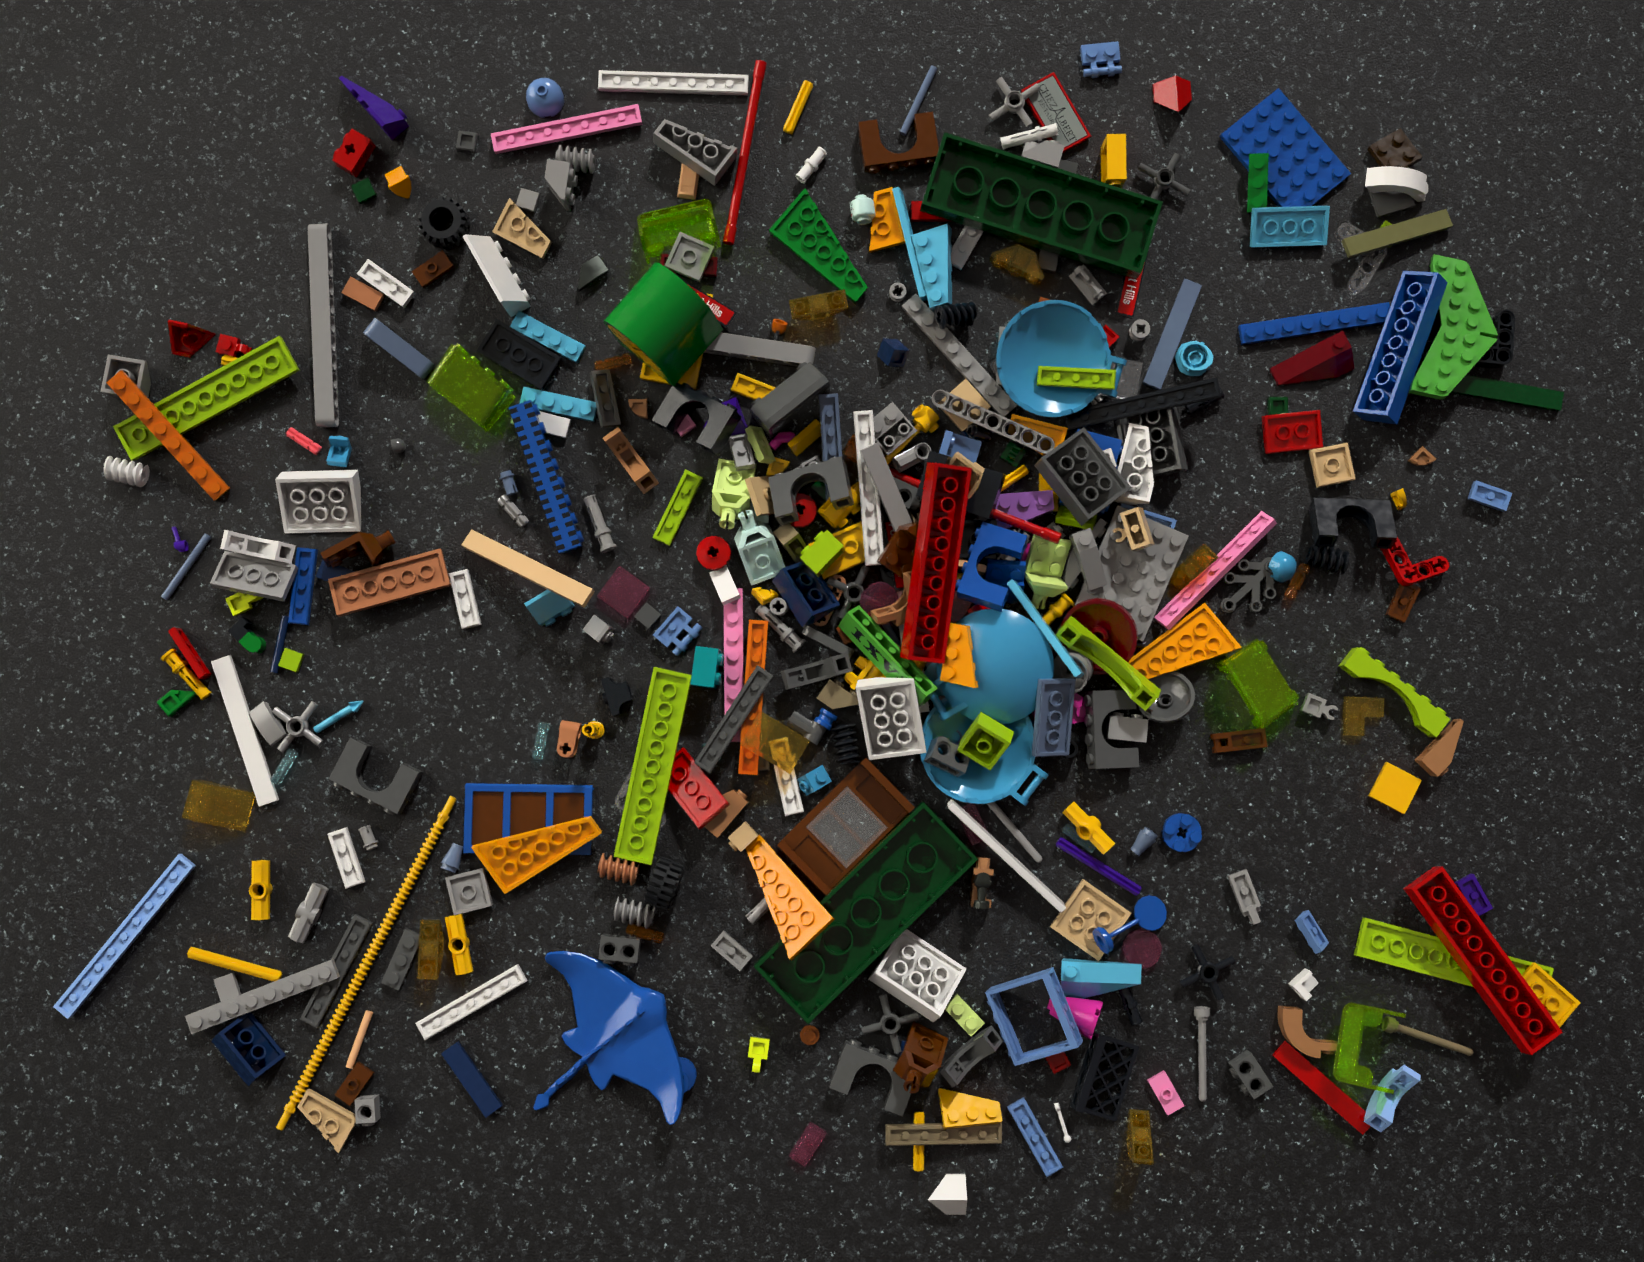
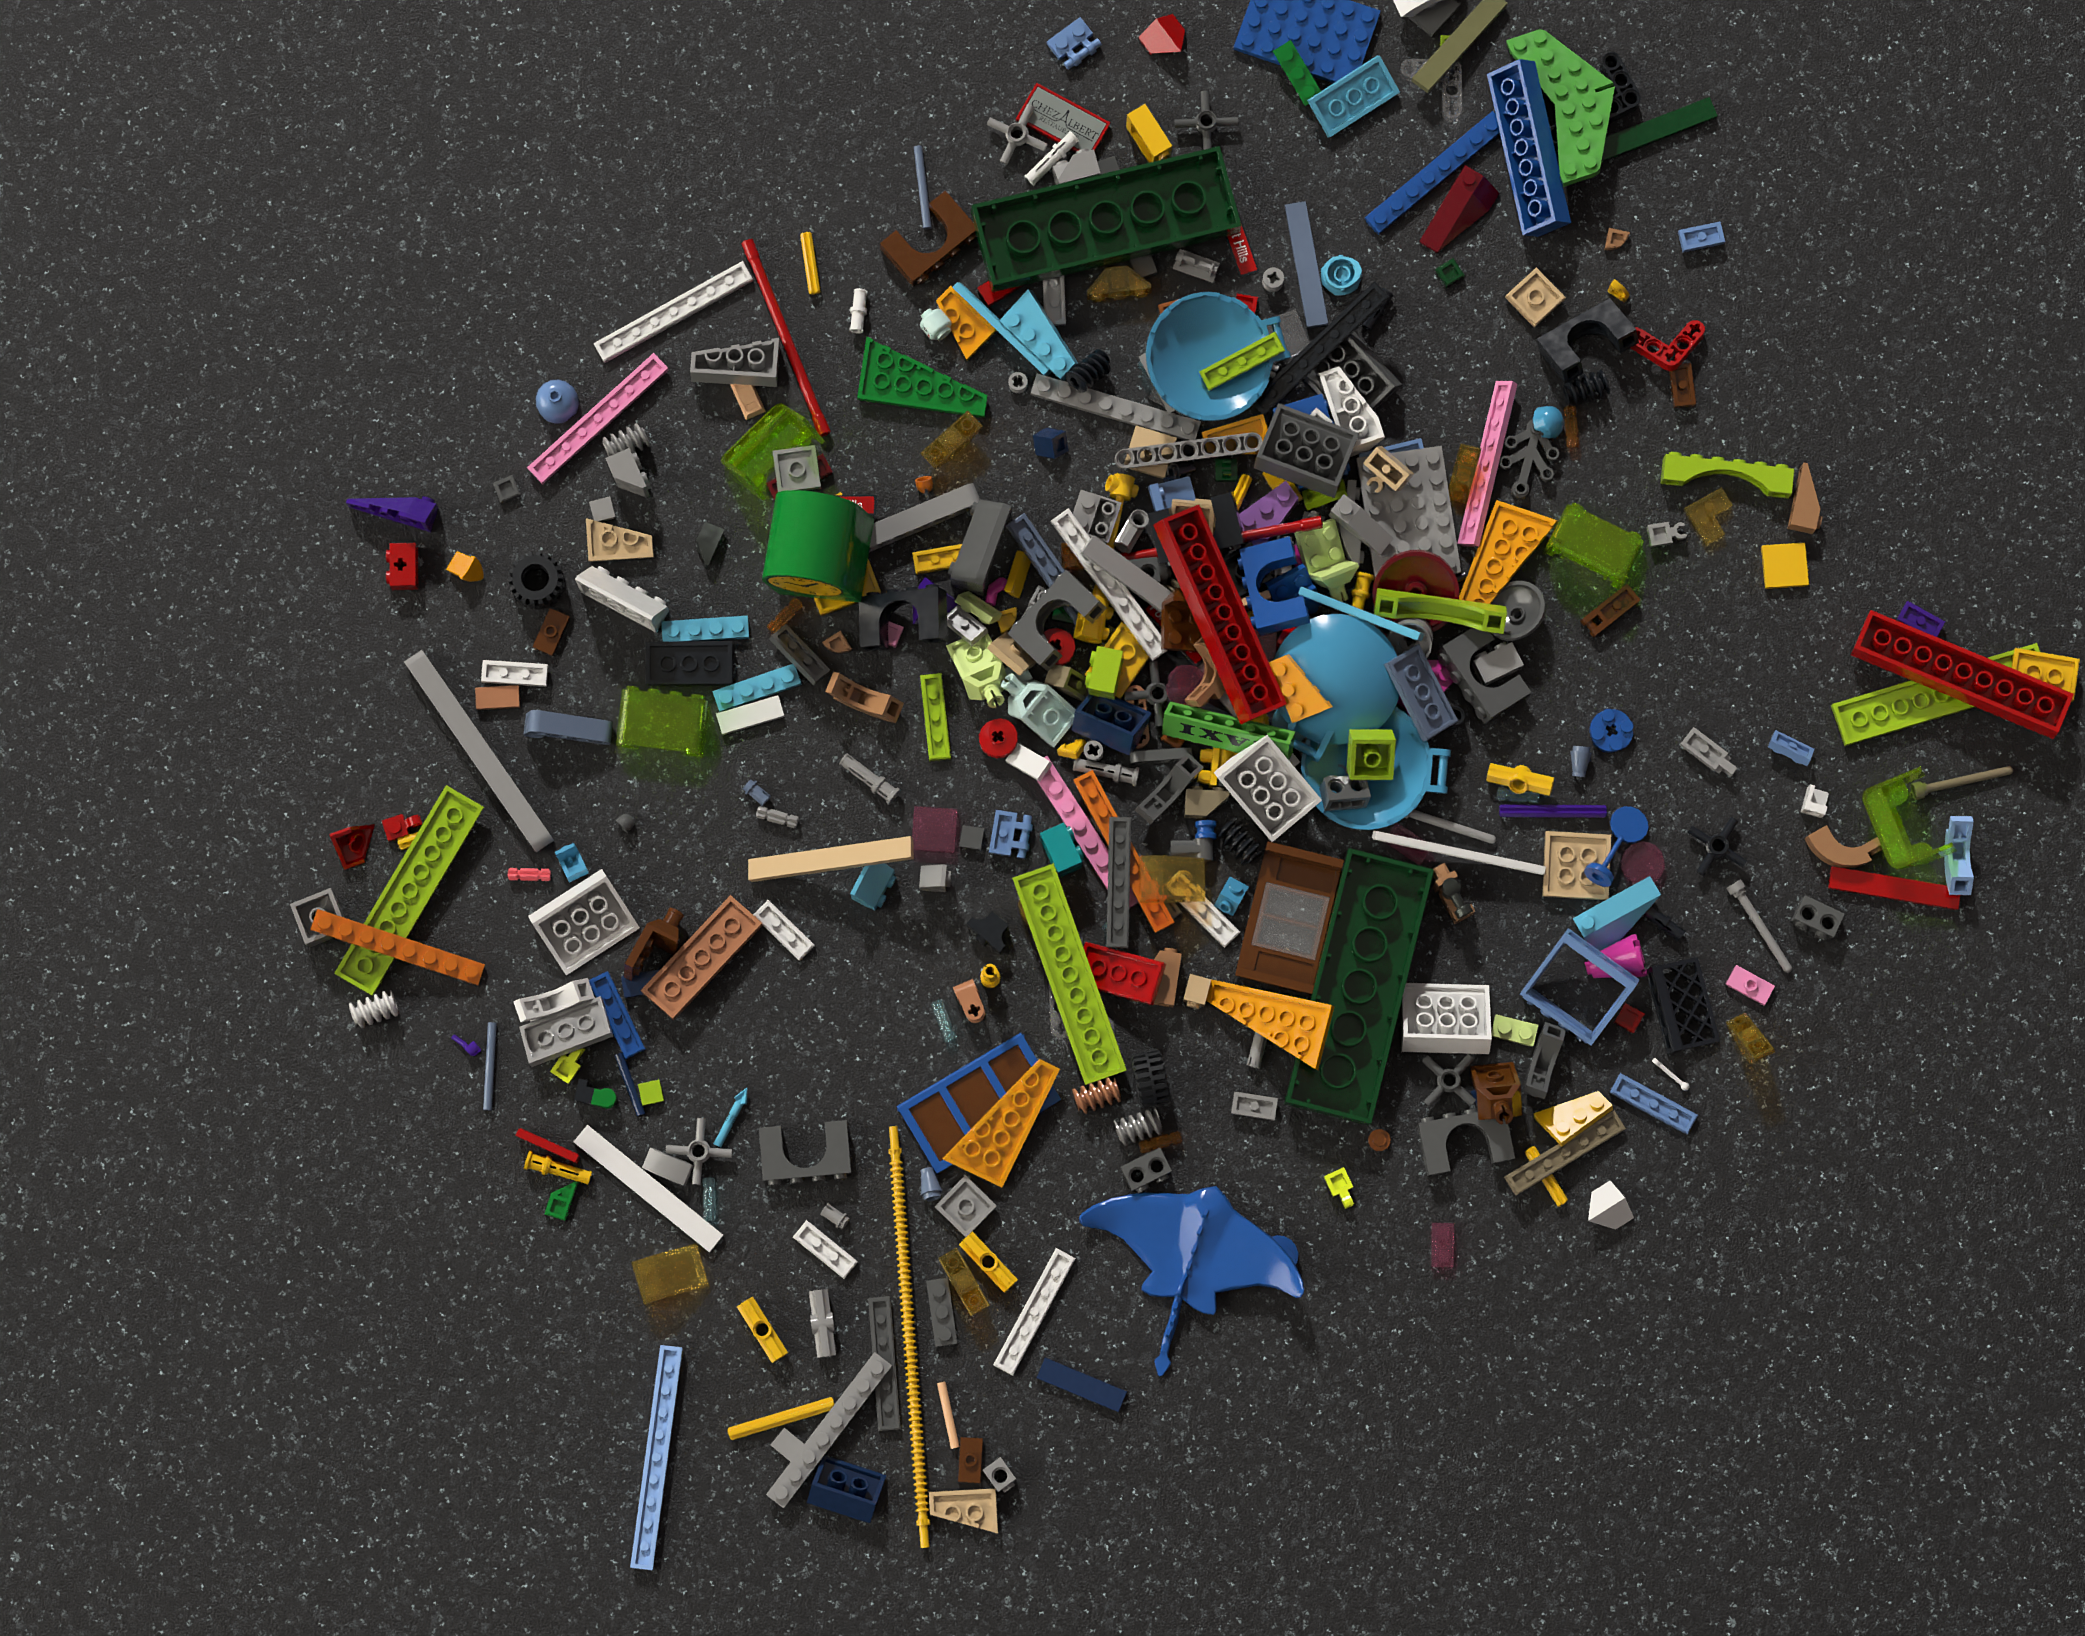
camera: 35 degrees left, 5 degrees down
(364, 191) = (435, 597): dark green tile -> none
(545, 476) = (790, 763): blue brick -> none
(1292, 431) = (1478, 288): red tile -> none

